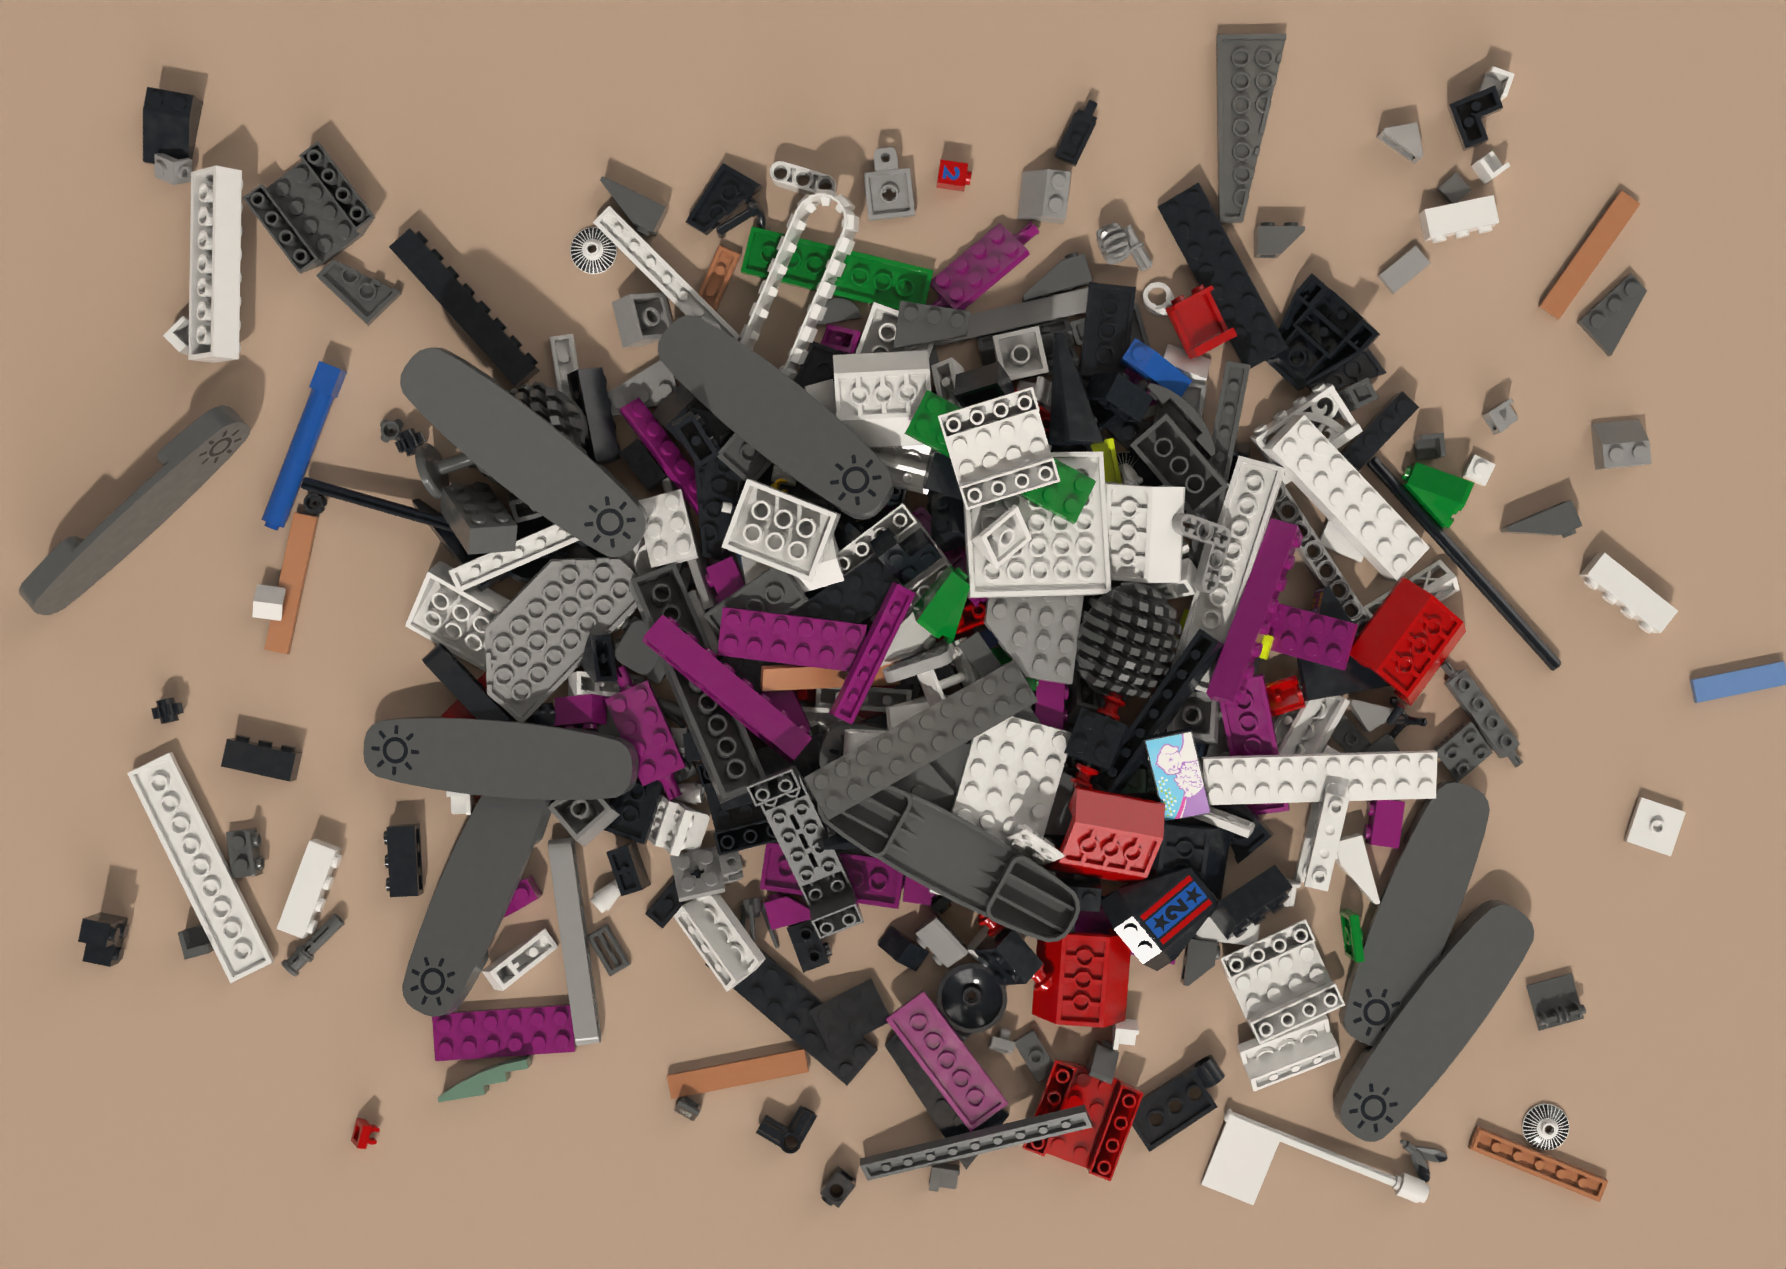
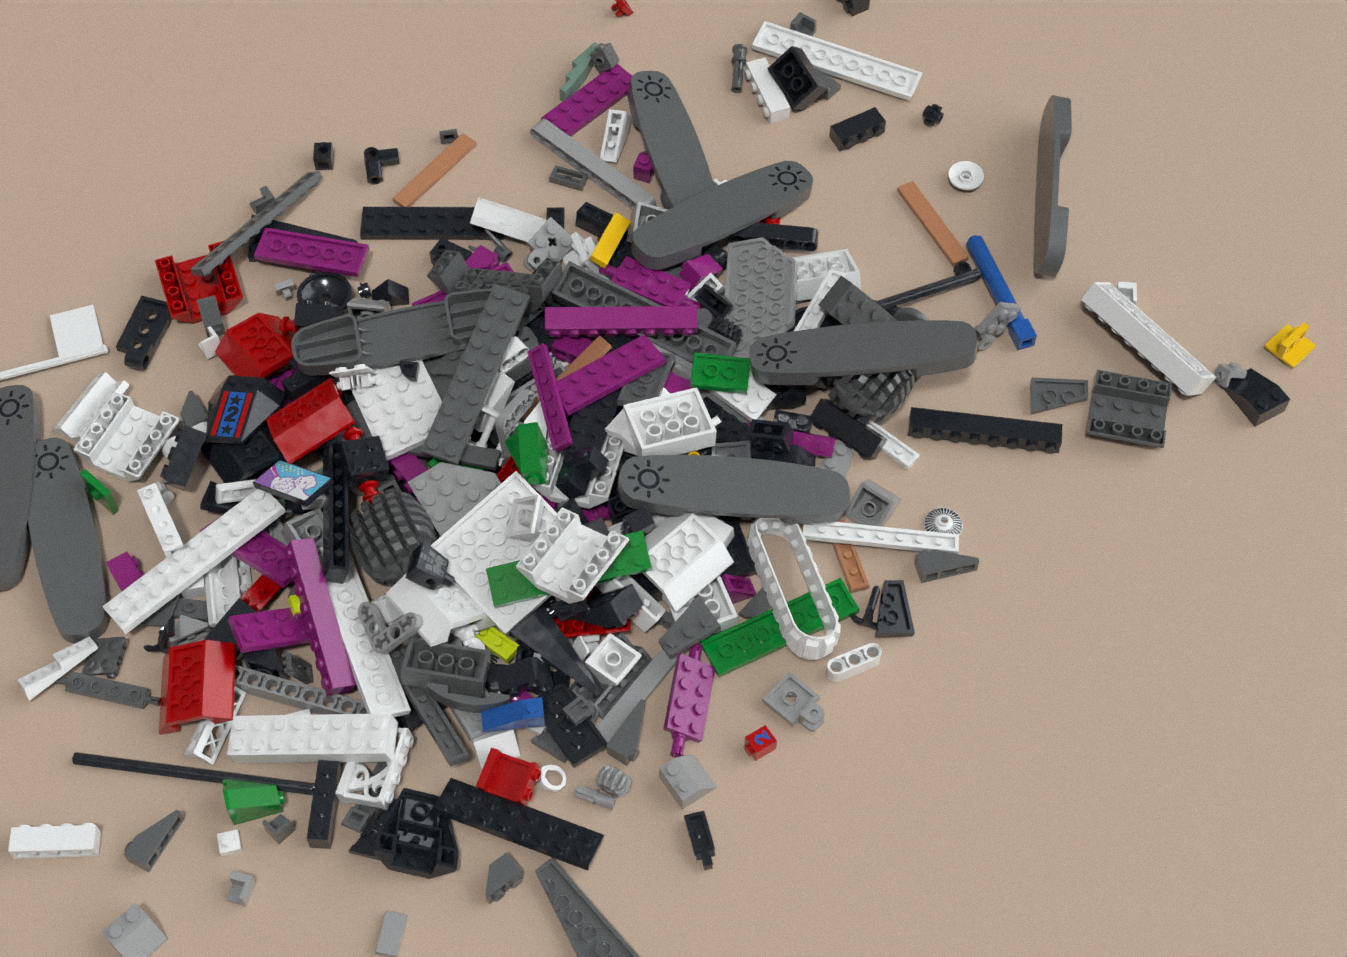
camera: 140 degrees right, 30 degrees down
(79, 150) = (1291, 344): none -> yellow bracket
(194, 607) = (966, 175): none -> white dish
(268, 602) = (935, 201): white panel -> none
(270, 867) = (797, 78): none -> black brick
(362, 405) = (995, 323): none -> light grey plate
(404, 860) = (728, 138): black brick -> none
(444, 1072) = (604, 57): none -> dark grey brick
(606, 896) = (595, 196): white cone -> none
(627, 608) = (725, 328): none -> black tyre
(641, 820) = (609, 240): none -> yellow tile
(675, 558) = (720, 373): none -> green tile
(849, 1015) = (393, 238): black plate -> none
(899, 453) = (637, 521): none -> black brick
(924, 975) = (364, 290): none -> black plate
(975, 808) = (410, 370): none -> black tile
(1034, 1055) = (259, 298): dark grey plate -> none
(1090, 329) = (579, 710): none -> dark grey bracket
(1129, 564) = (428, 567): none -> black torso
(1312, 590) = (296, 670): none -> dark grey tile
(1355, 863) = (129, 537): white slope -> none
(1516, 771) = (64, 661): none -> white slope

